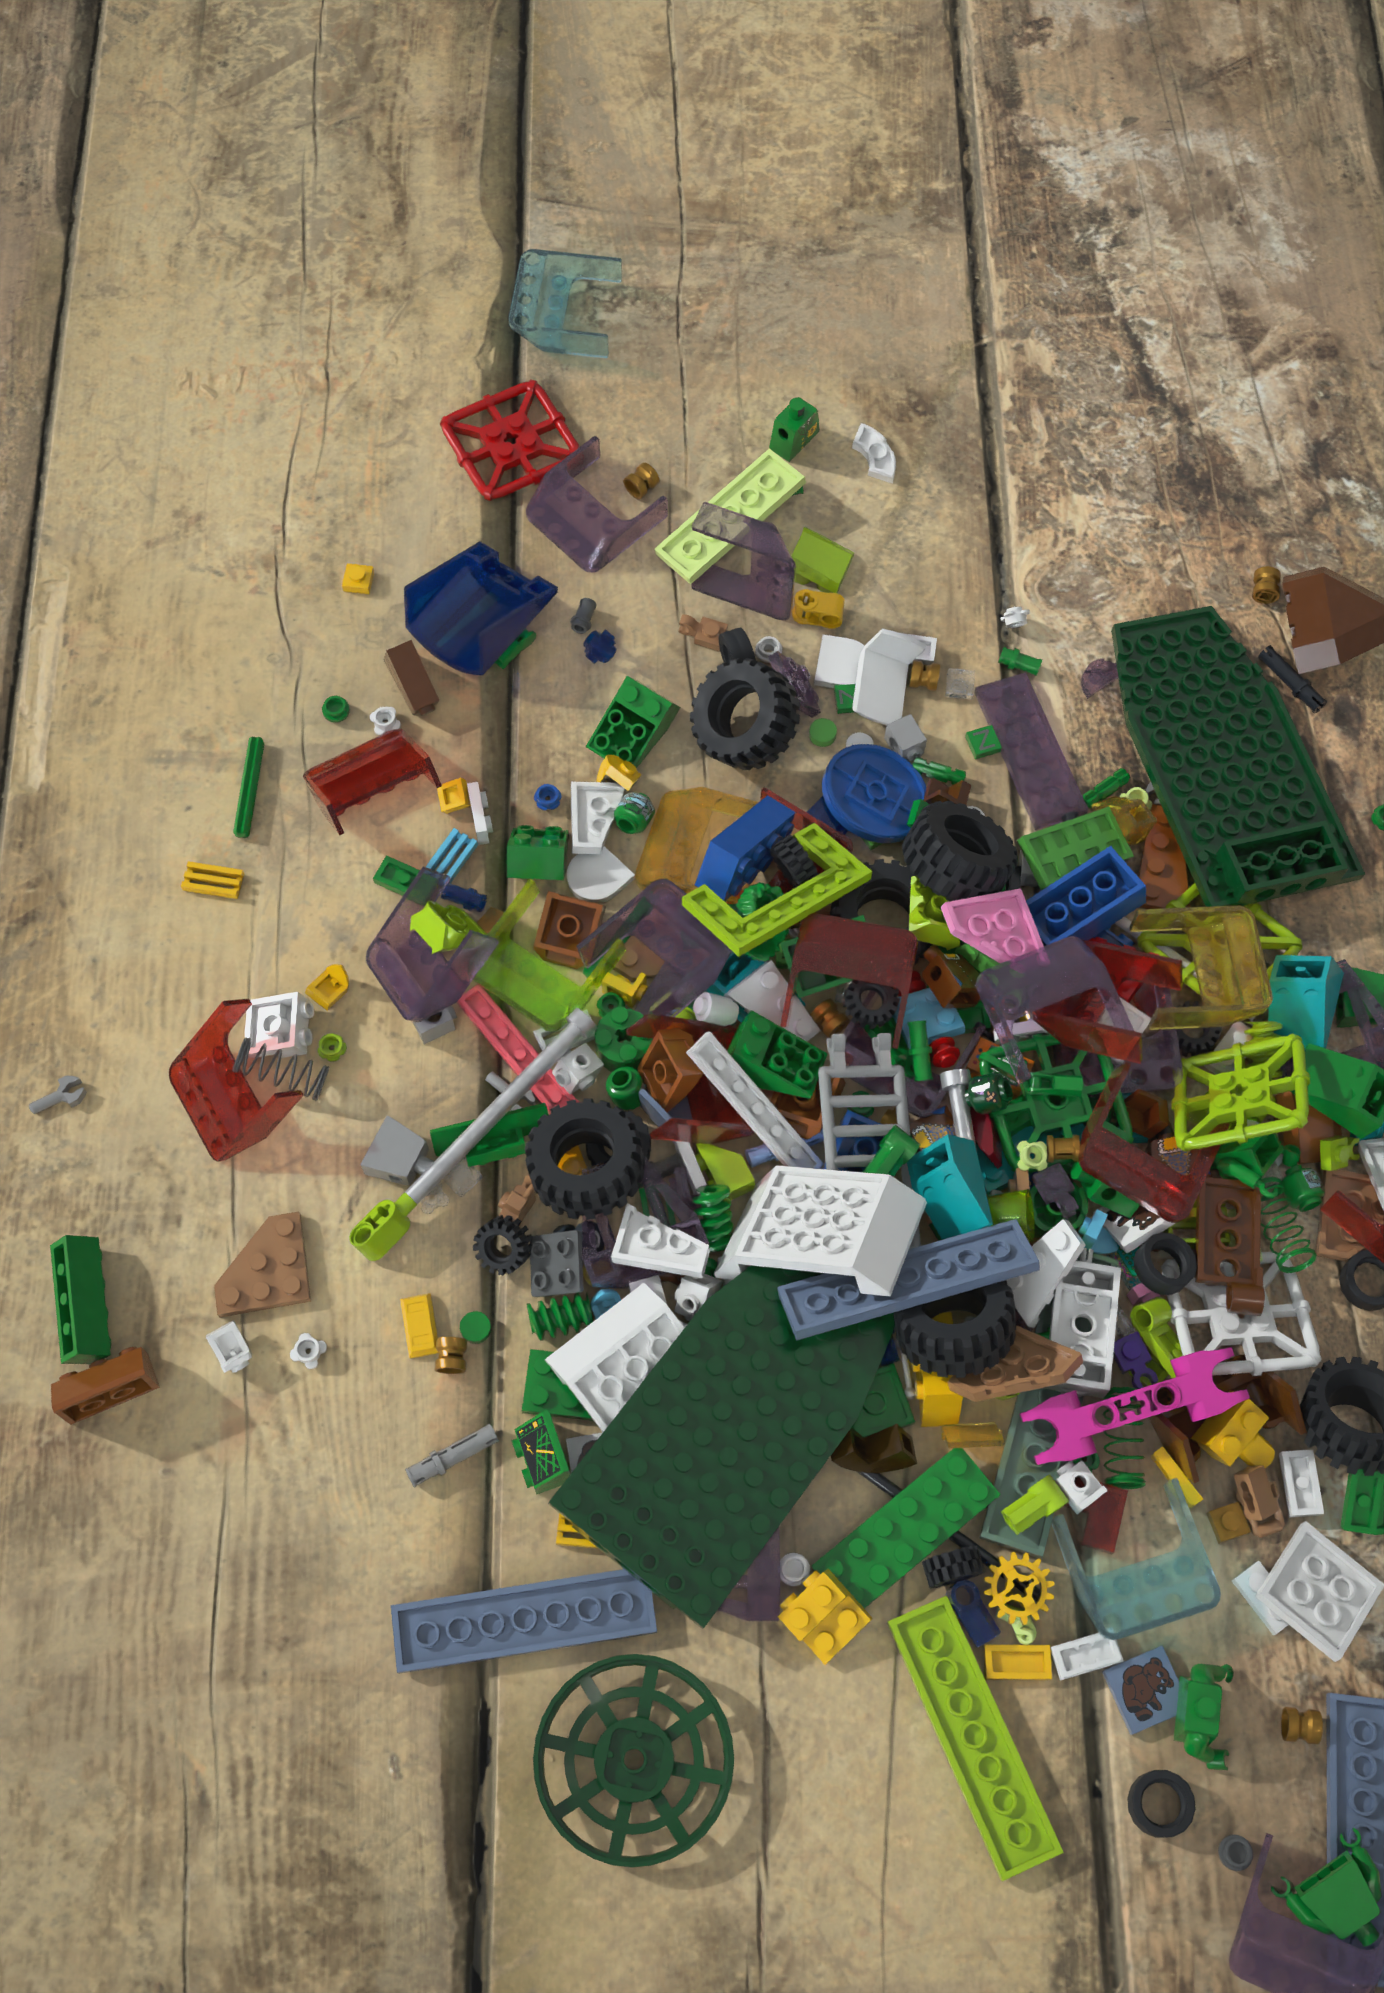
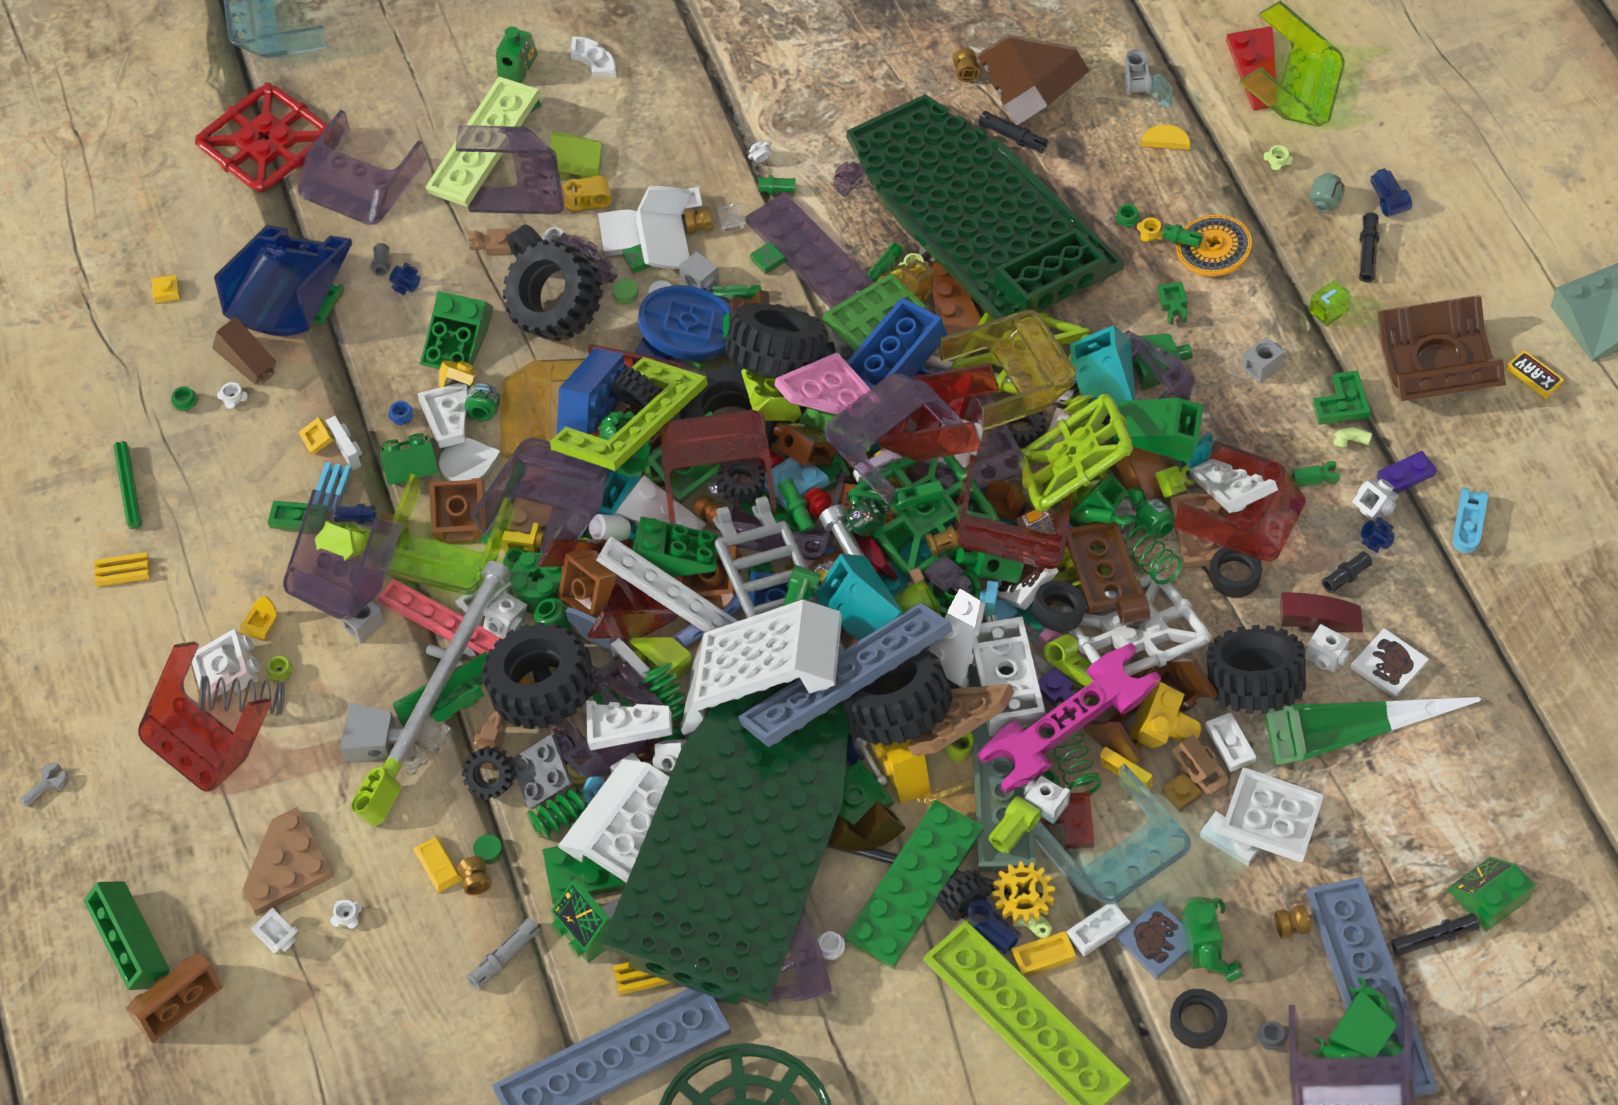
camera: 15 degrees left, 10 degrees down
(366, 772) = (233, 437): clear red windscreen -> none
(641, 480) = (395, 134): pearl gold wheel -> none
(824, 1615) = (868, 968): yellow plate -> none
(1039, 1149) = (919, 549): yellowish green plate -> none

